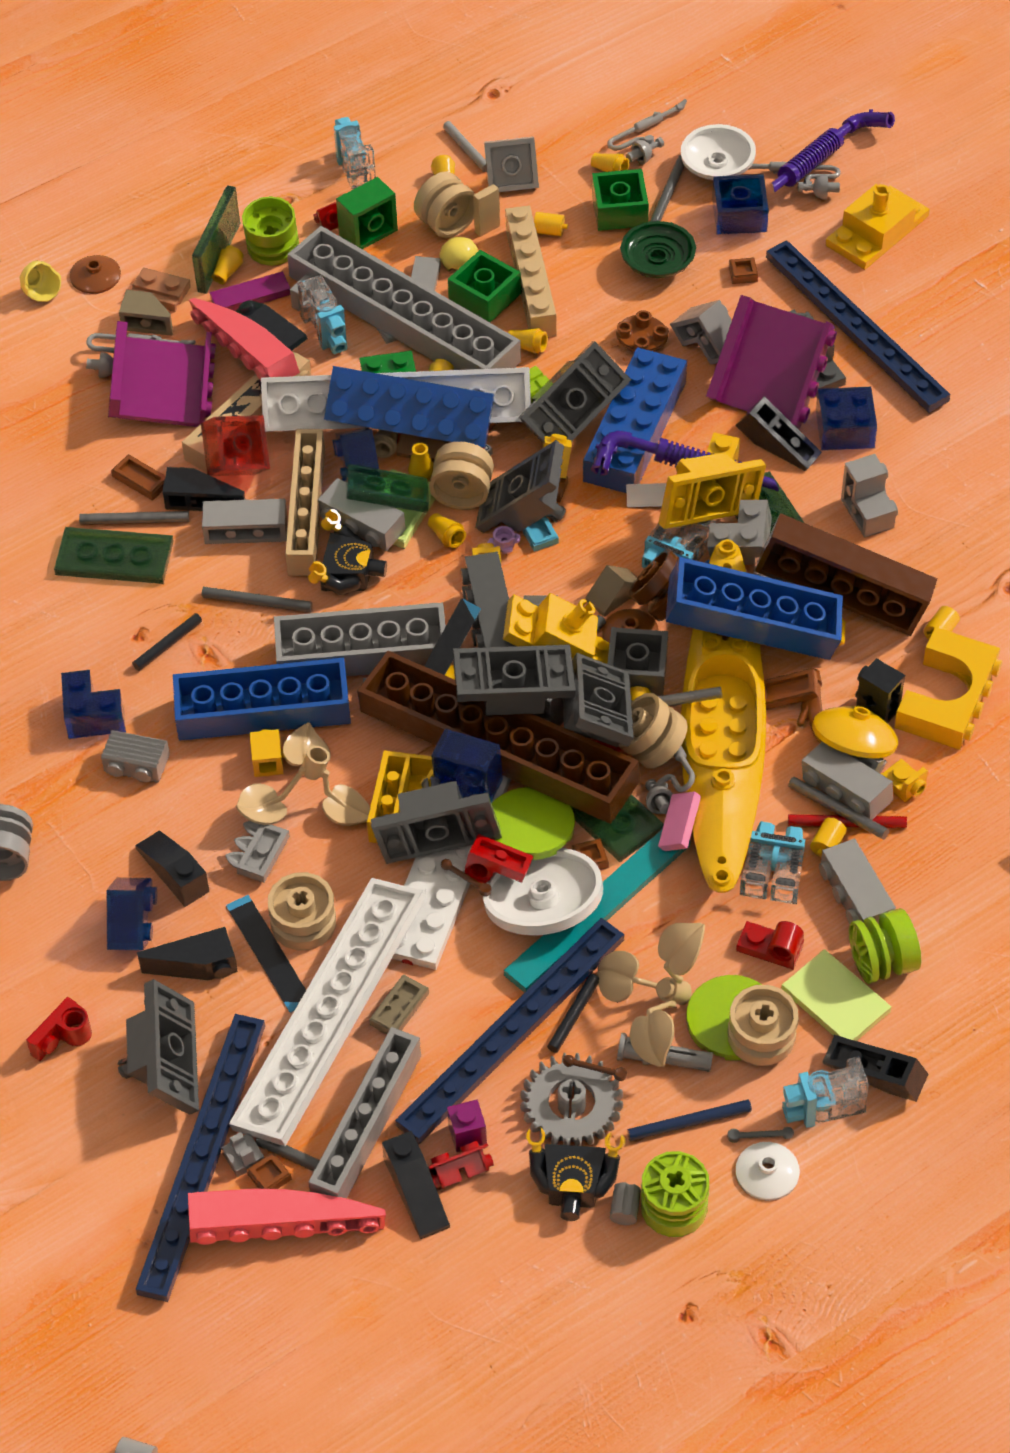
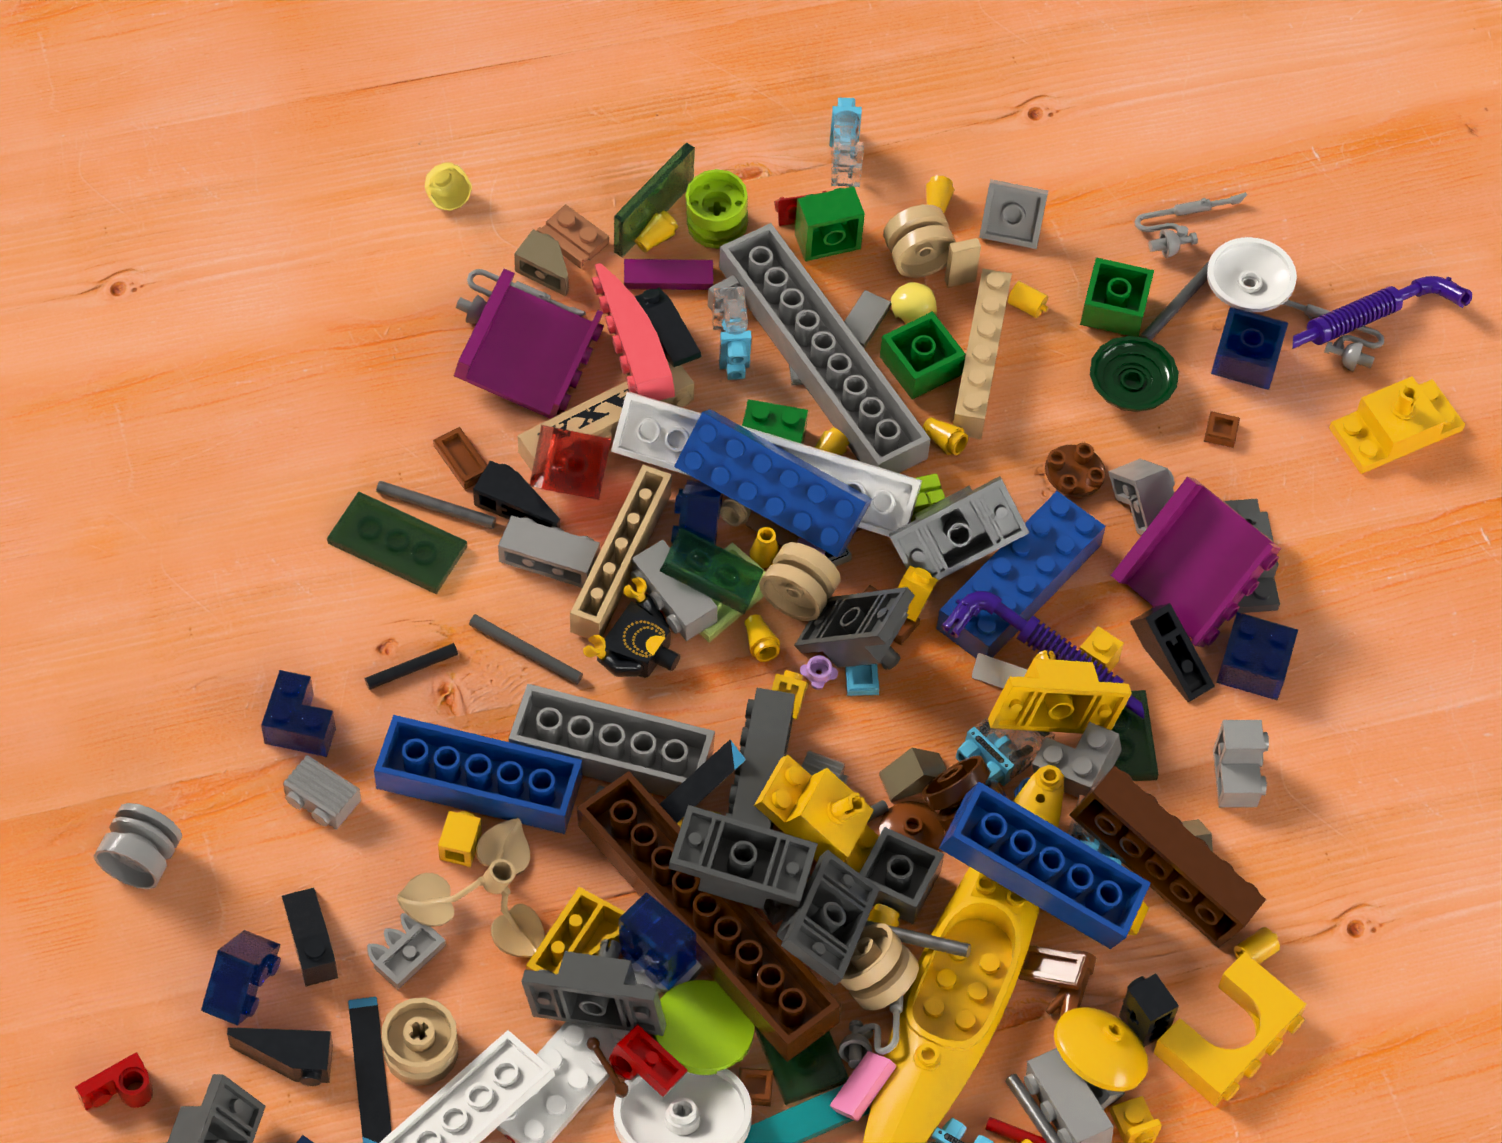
camera: 15 degrees right, 5 degrees up
(95, 274) = (513, 202): dark orange dish -> none
(465, 145) = (976, 166): light grey bar -> none
(609, 162) = (1129, 248): yellow cone -> none
(858, 326) = (1320, 545): dark blue plate -> none

